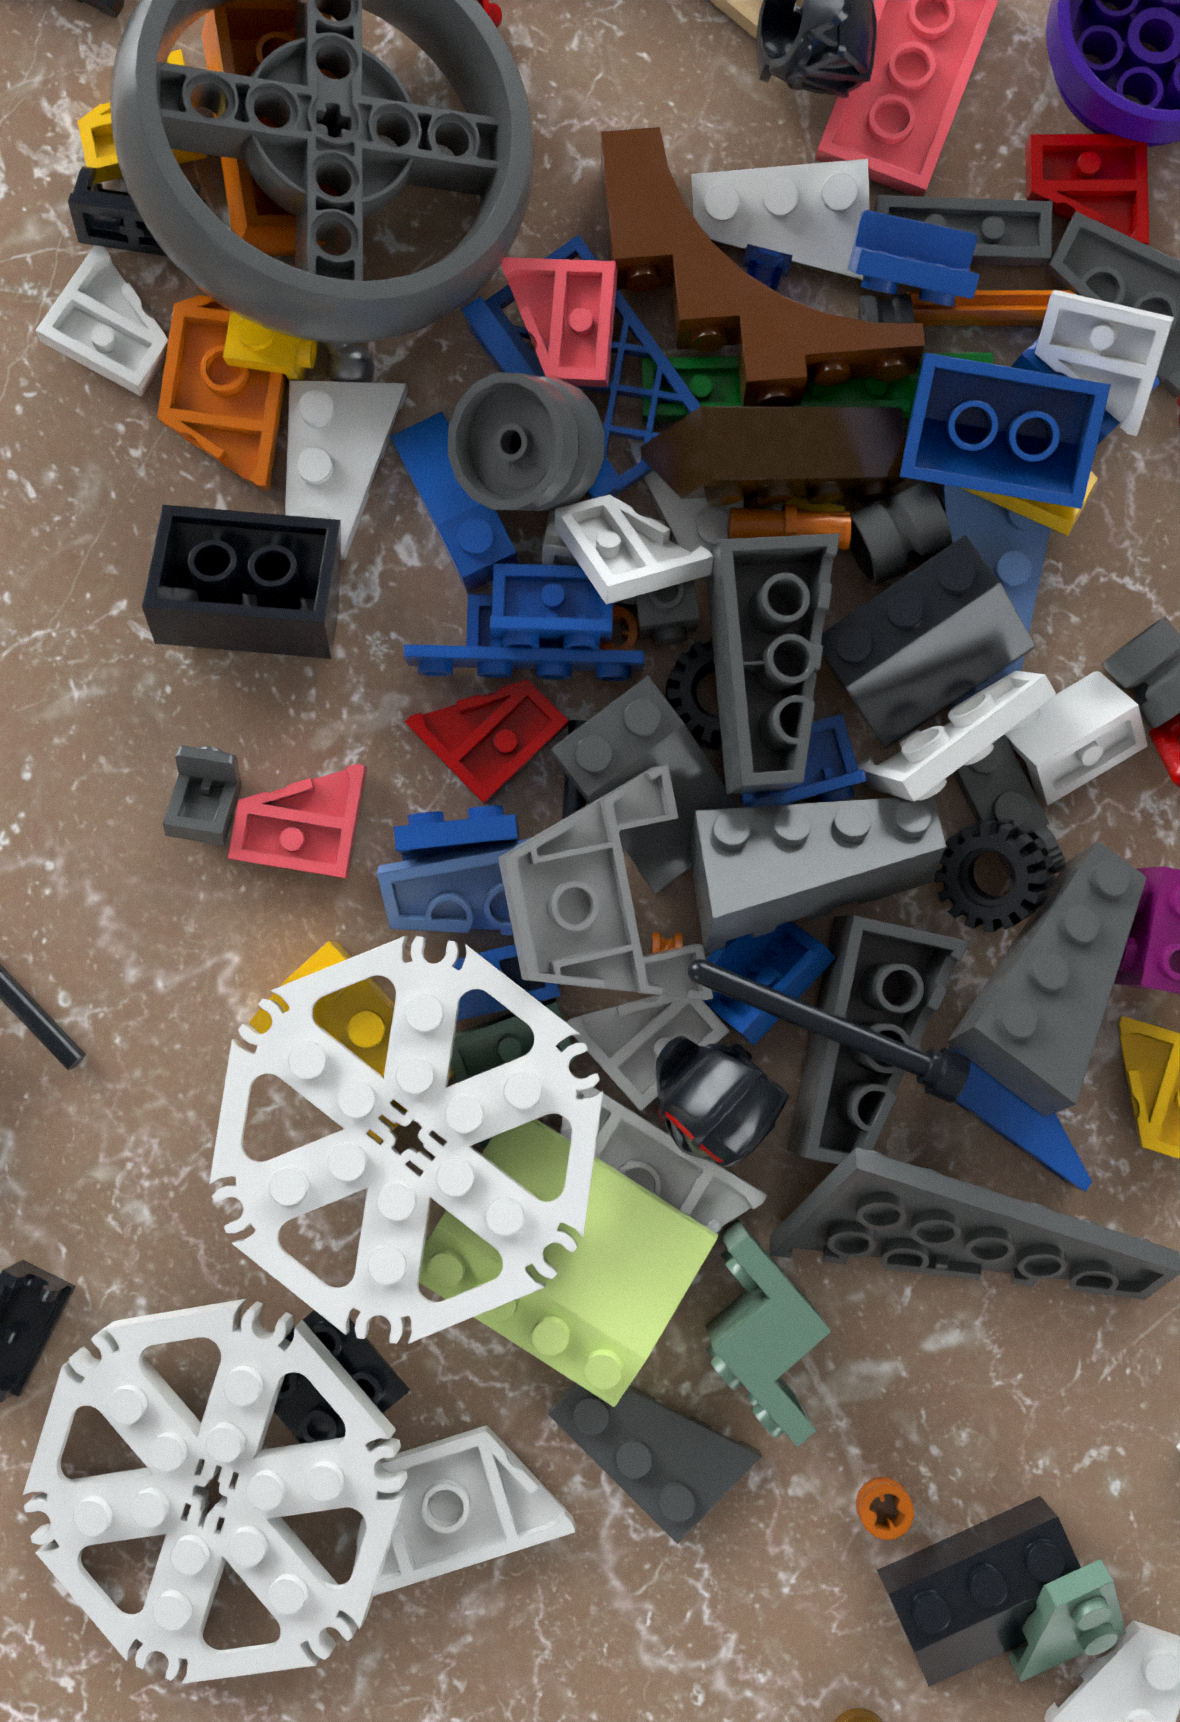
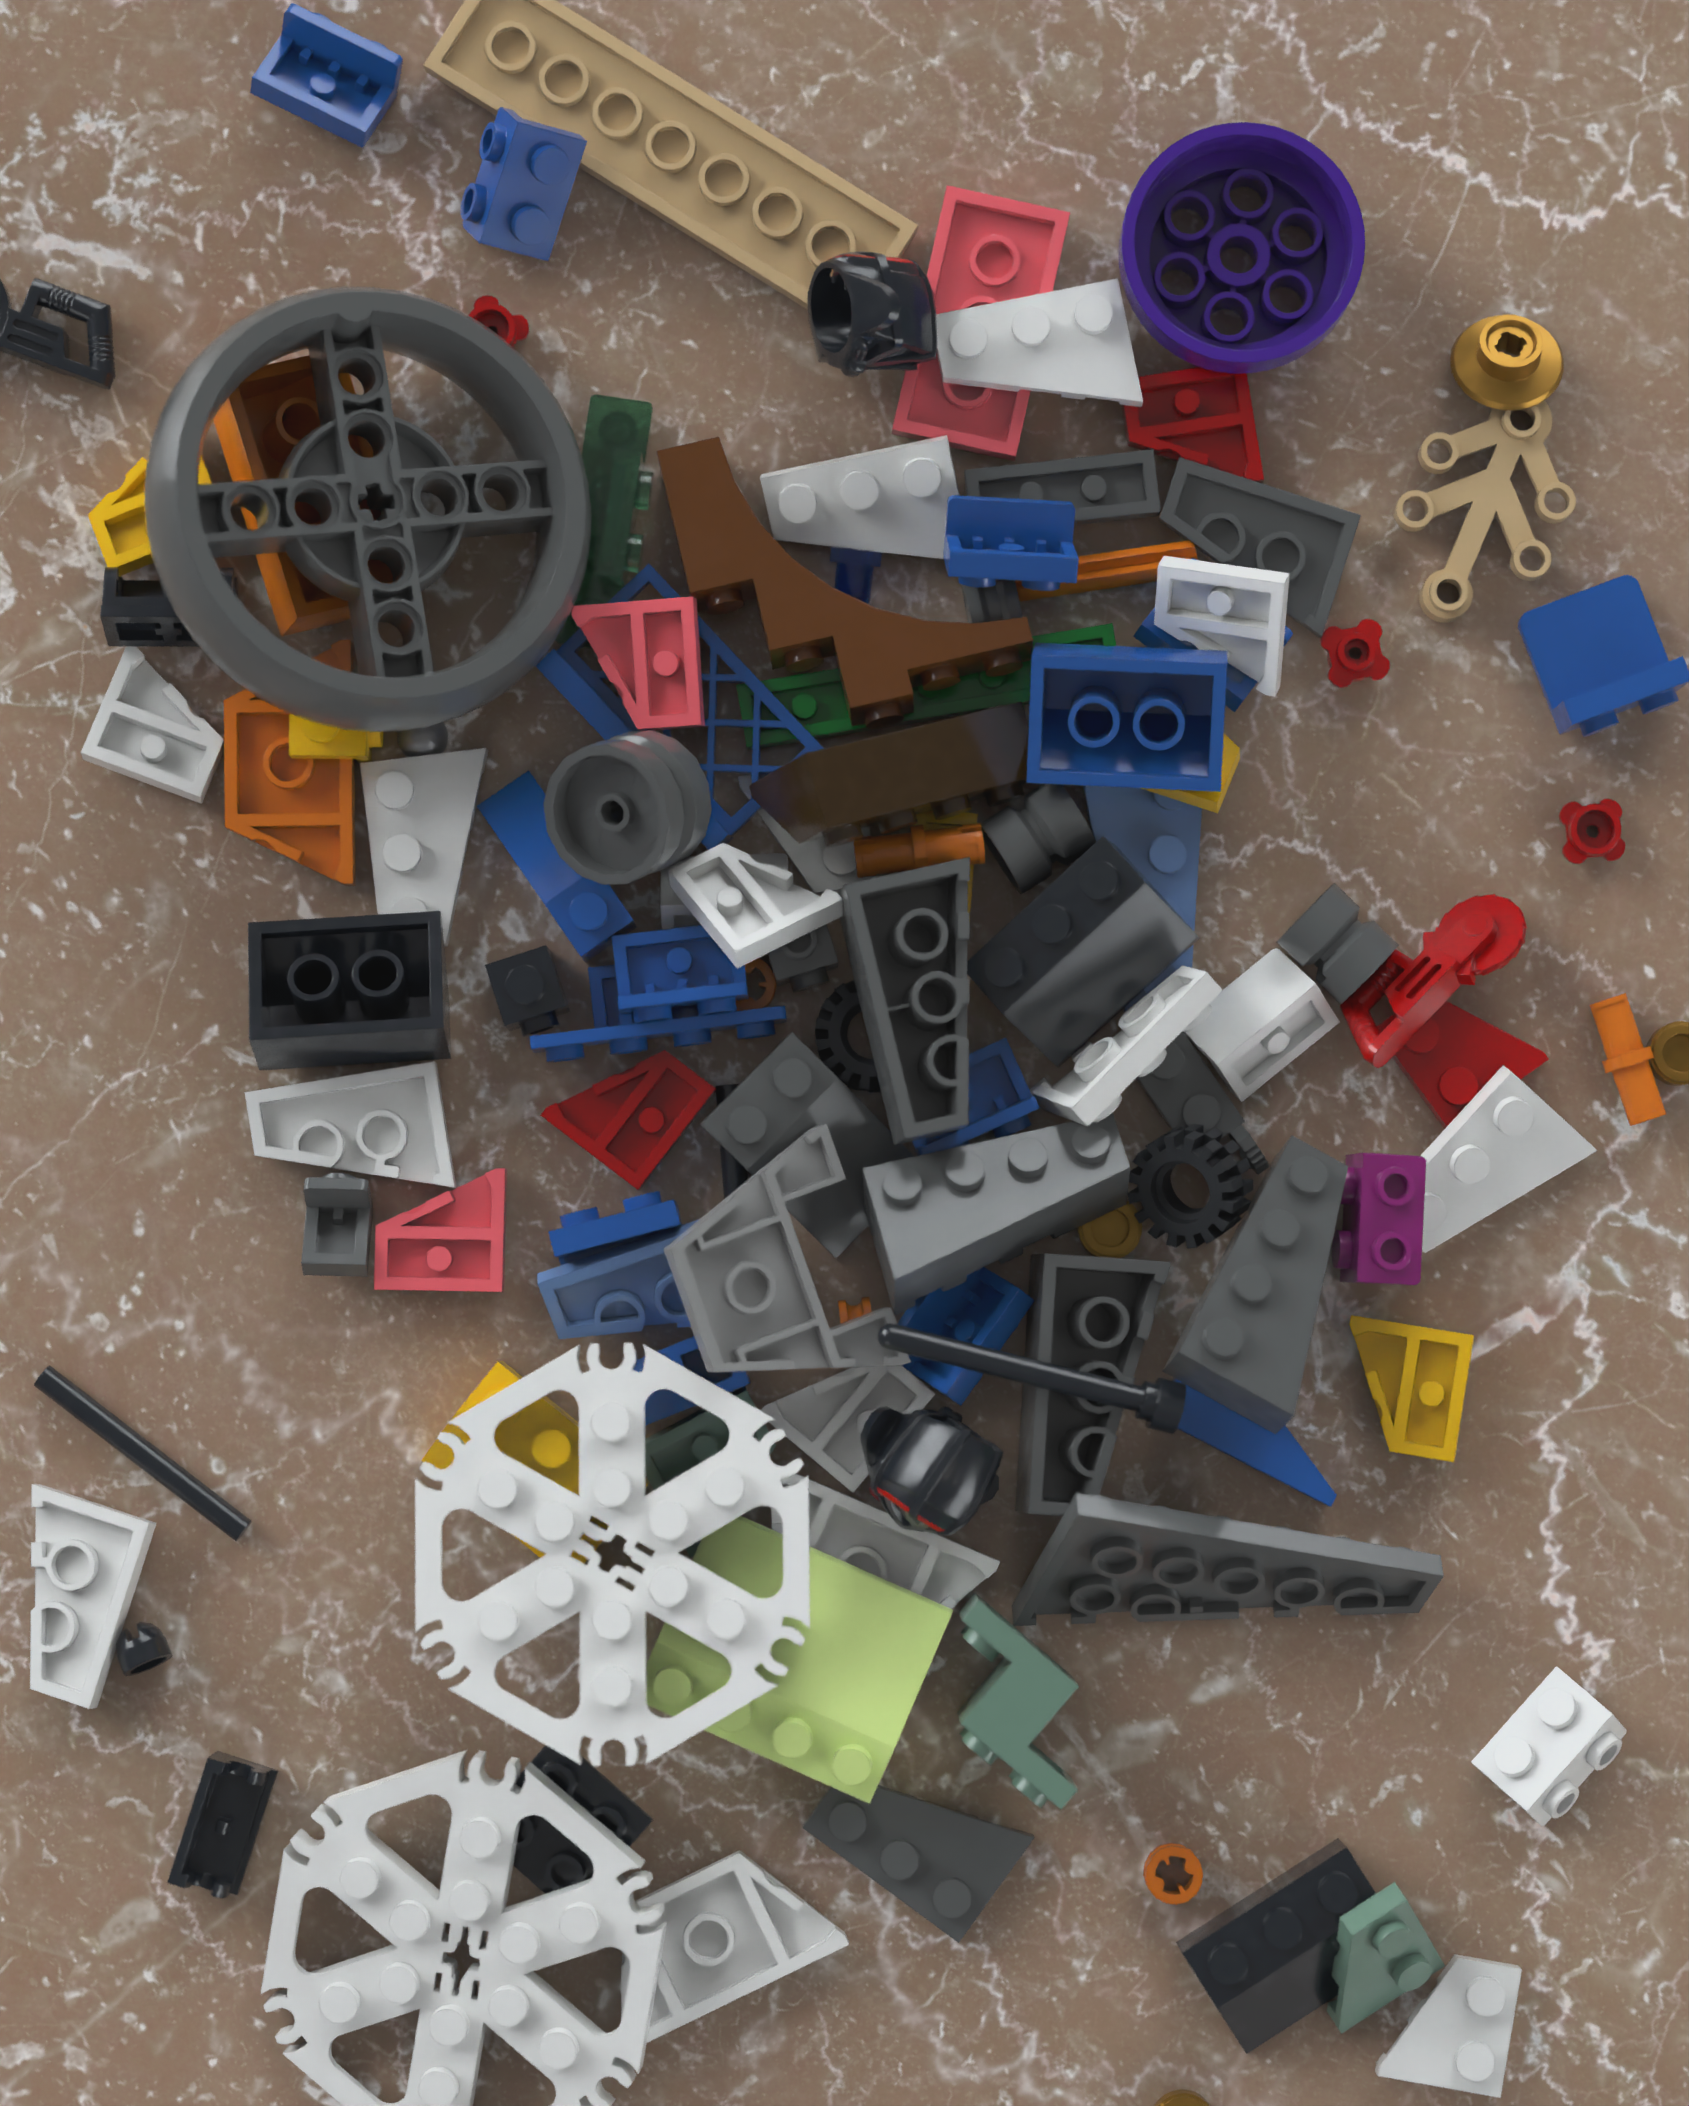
camera: 10 degrees left, 0 degrees up
(239, 705) = (358, 1123): none -> white wing
(410, 605) = (528, 991): none -> black brick
(560, 165) = (618, 487): none -> clear green bracket
(912, 908) = (1112, 1234): none -> pearl gold tile
(968, 87) = (1044, 342): none -> white wing

